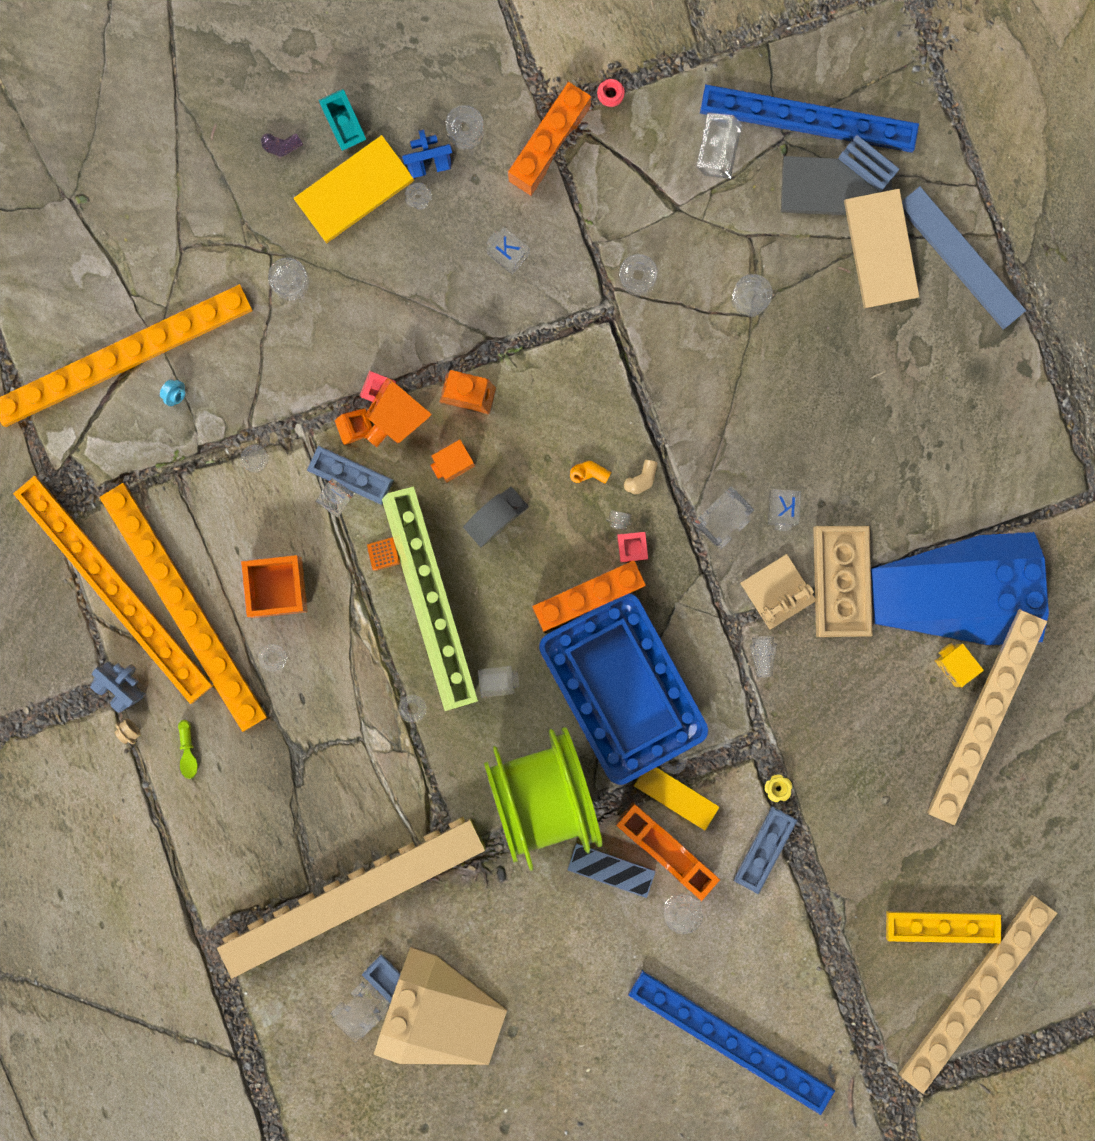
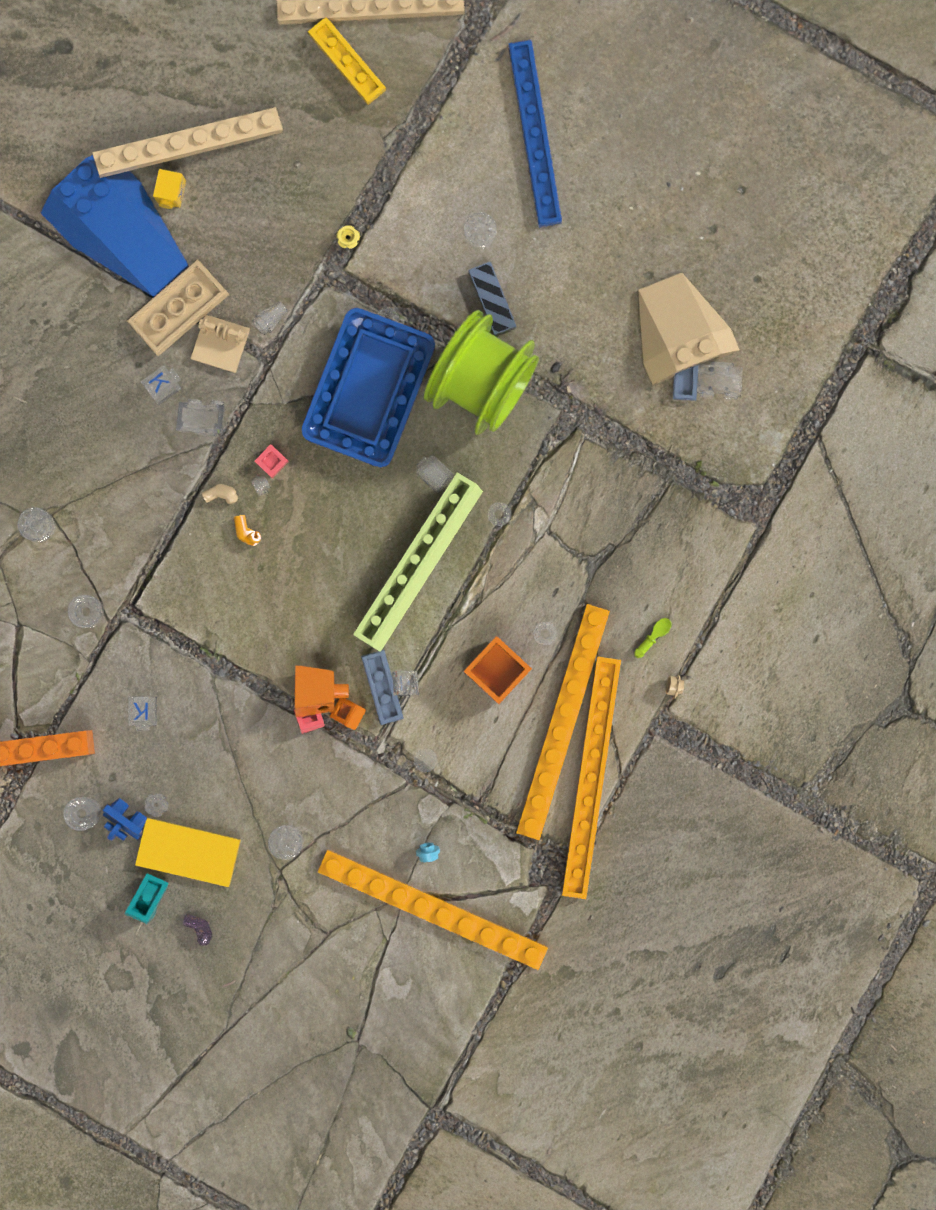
camera: 130 degrees left, 0 degrees up
(119, 682) = (647, 718): sand blue hips -> none
(351, 897) = (653, 448): tan brick -> none
(383, 554) = (415, 620): orange slope -> none
(451, 461) = (316, 626): orange brick -> none
(467, 392) = (261, 657): orange torso -> none
(495, 516) = (327, 566): dark grey brick -> none
(588, 596) = (328, 461): orange arch -> none
(667, 851) = (448, 272): orange arch -> none
(677, 797) = (409, 295): yellow tile -> none
(765, 850) = (395, 213): sand blue tile -> none

